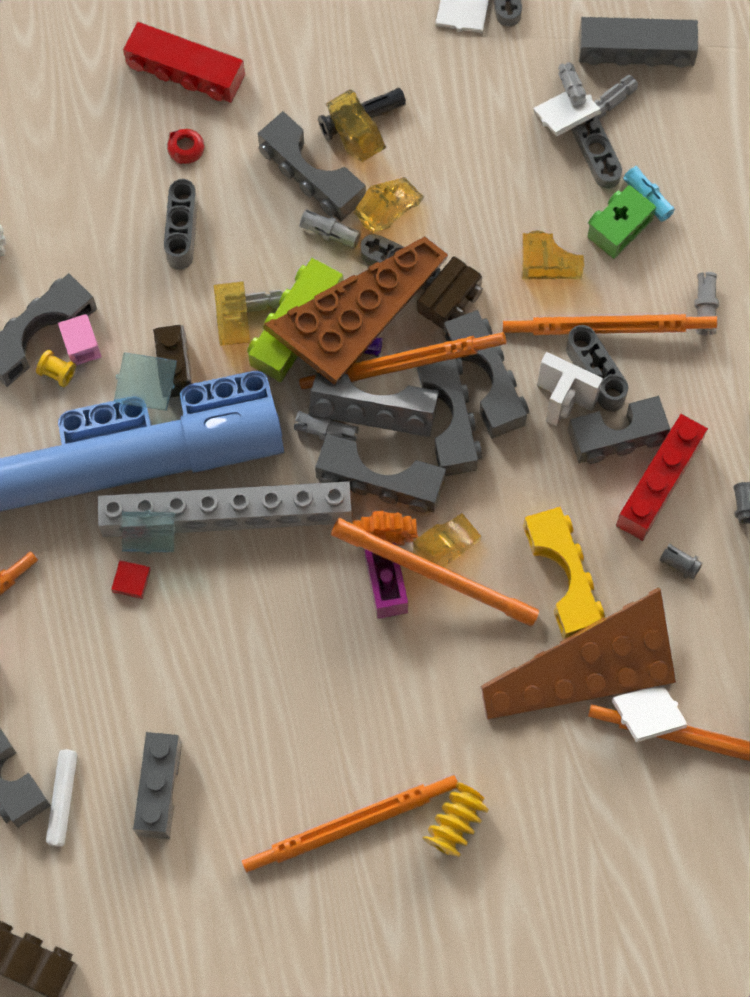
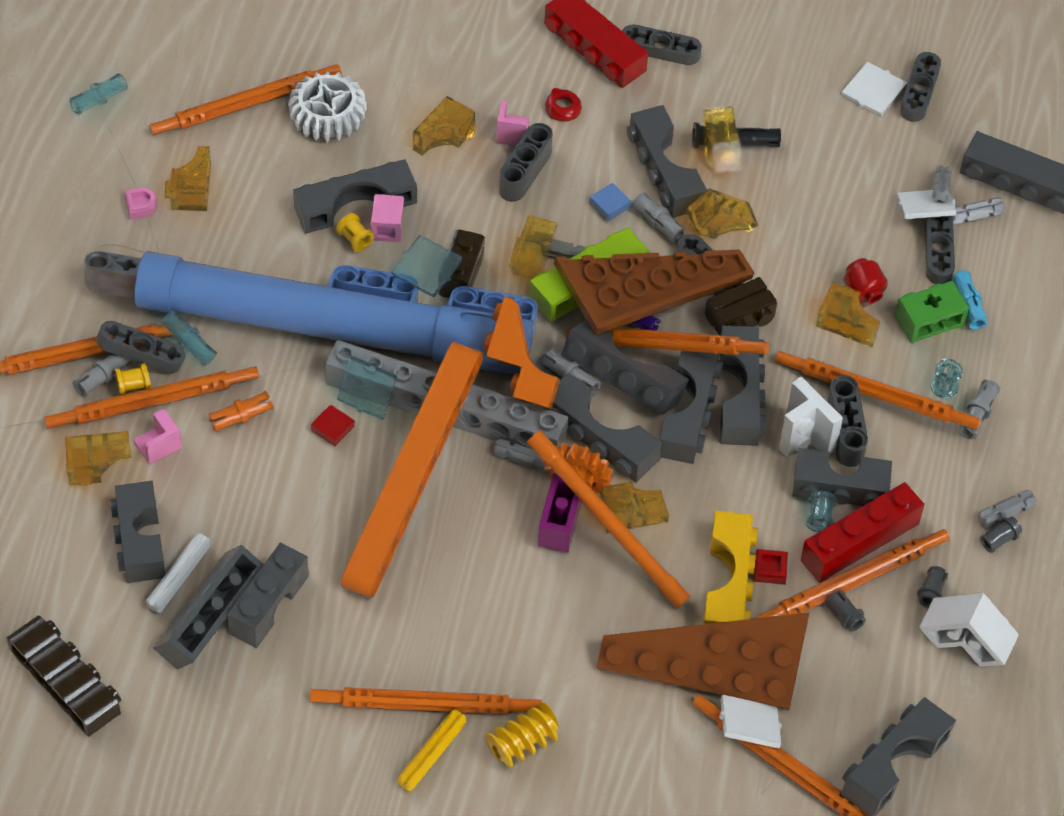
camera: 20 degrees right, 15 degrees down
(39, 604) = (241, 411): none -> orange pin
(89, 215) = (446, 125): none -> clear yellow arch
(110, 825) = (208, 607): none -> dark grey brick
(150, 192) = (510, 127): none -> bright pink panel
(232, 601) = (412, 470): none -> orange beam
(267, 30) = (681, 42): none -> dark grey beam
(268, 441) = (510, 347): none -> orange arch
(277, 231) = (610, 201): none -> medium blue tile
(315, 533) = (518, 454): none -> light grey axle
(379, 870) = (431, 750): none -> yellow axle
(549, 215) = (867, 278): none -> red head
(594, 545) = (770, 566): none -> red tile
(615, 471) = (821, 510): none -> clear light blue bush
(666, 277) = (951, 377): none -> clear light blue bush
(670, 526) = (858, 575): none -> orange axle

